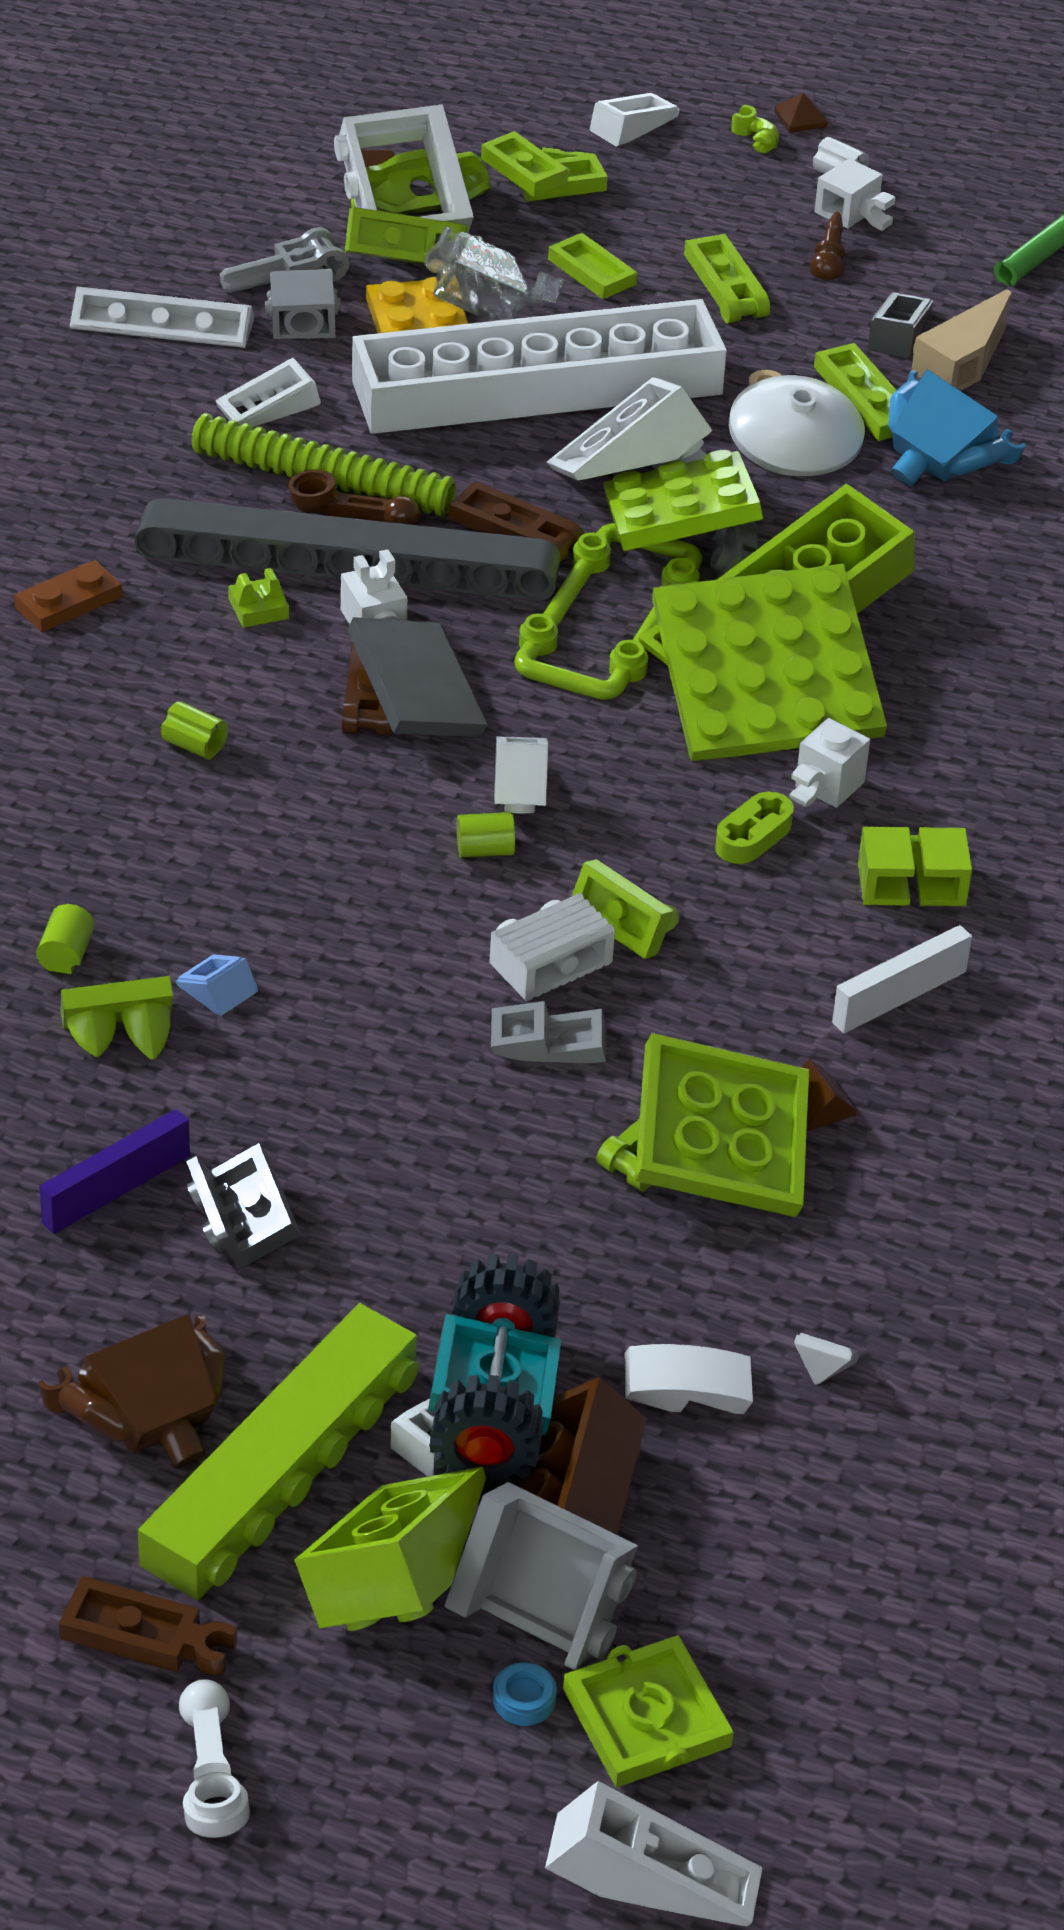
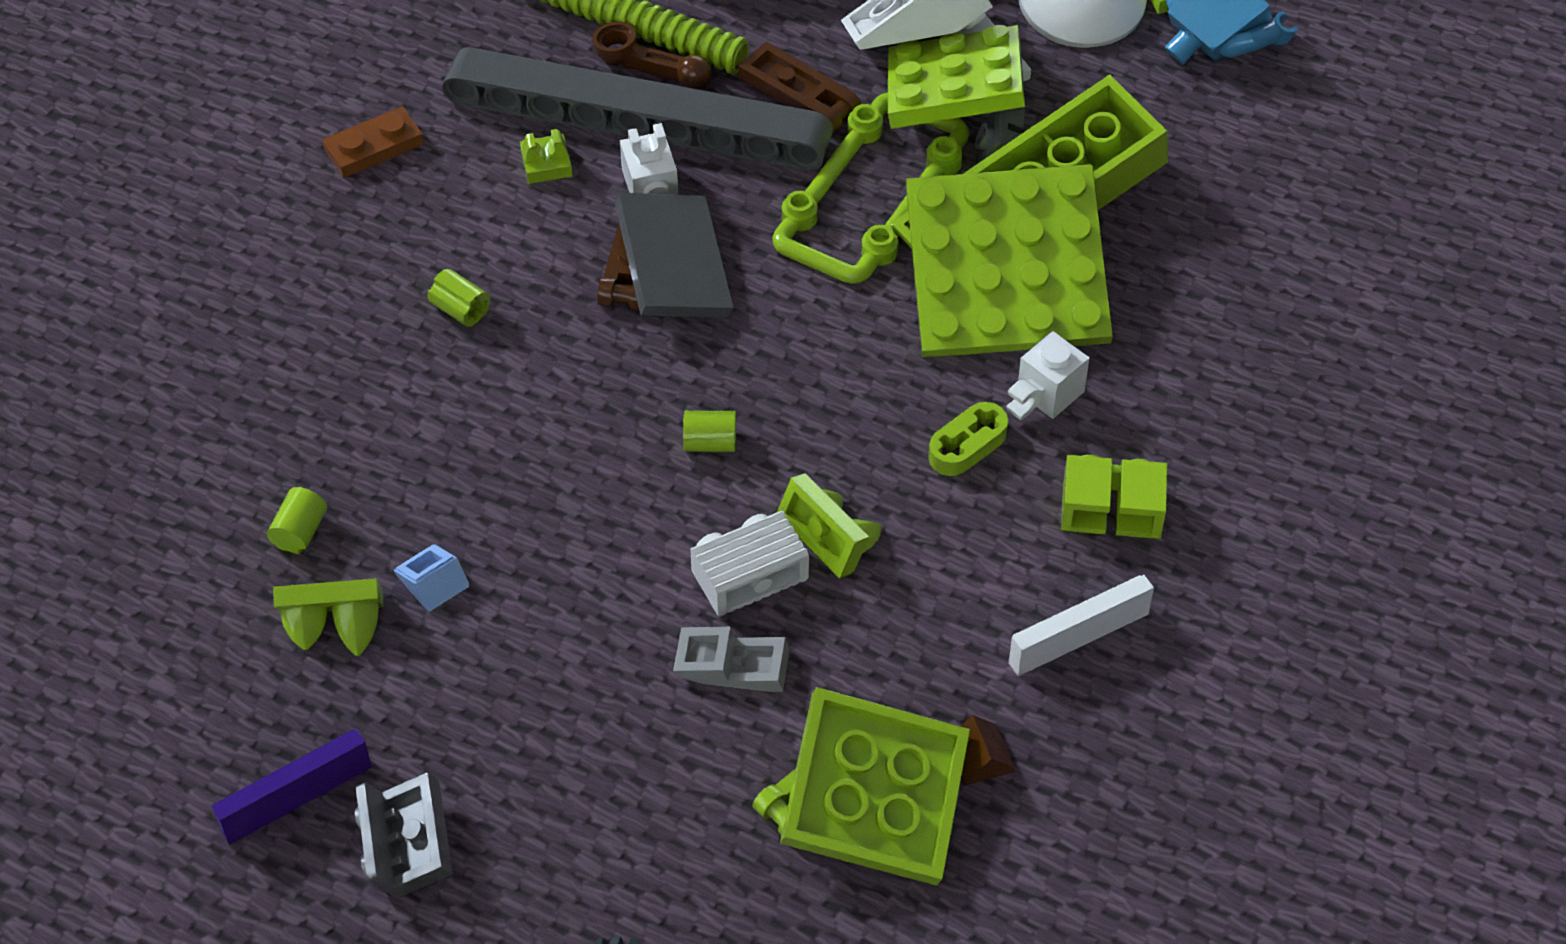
camera: 10 degrees right, 10 degrees up
(521, 773) = (751, 369): white brick -> none

